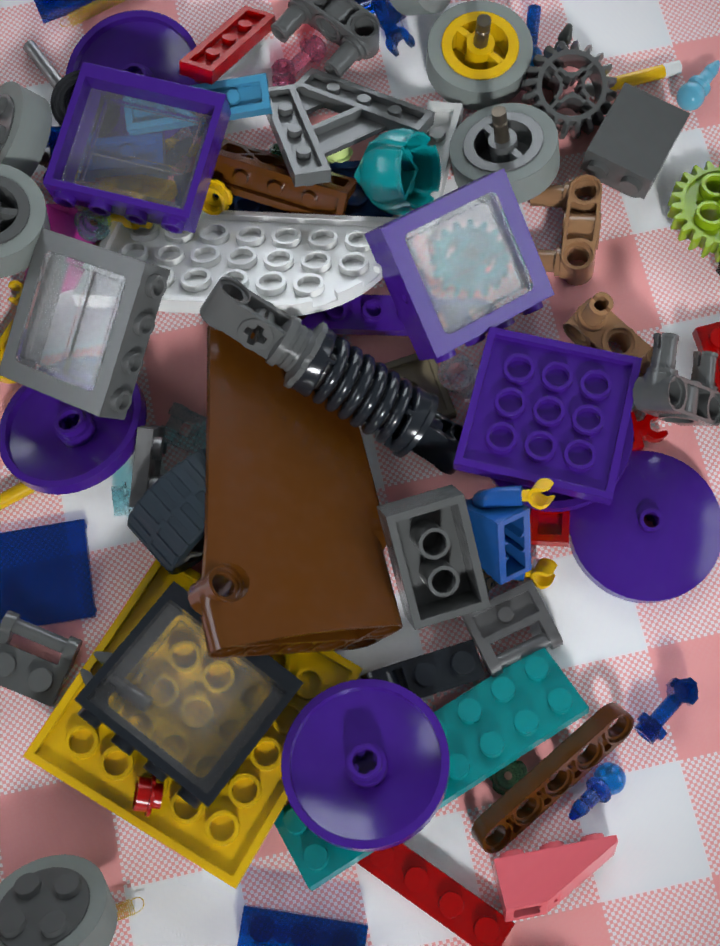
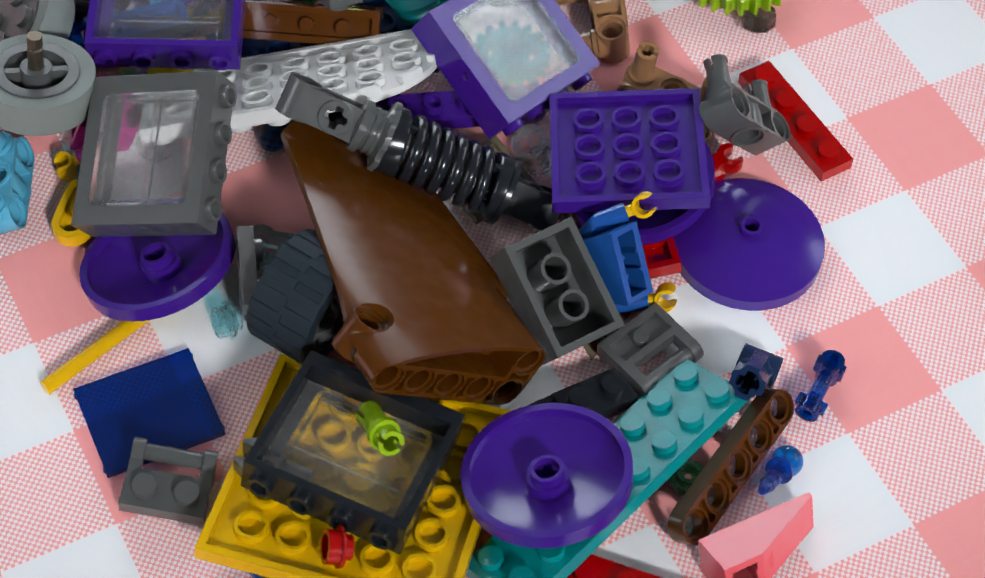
camera: 20 degrees left, 20 degrees down
(215, 205) = (258, 42): yellow plate -> none
(216, 690) = (380, 429): none -> lime pin
(605, 683) = (754, 372): none -> dark blue piece

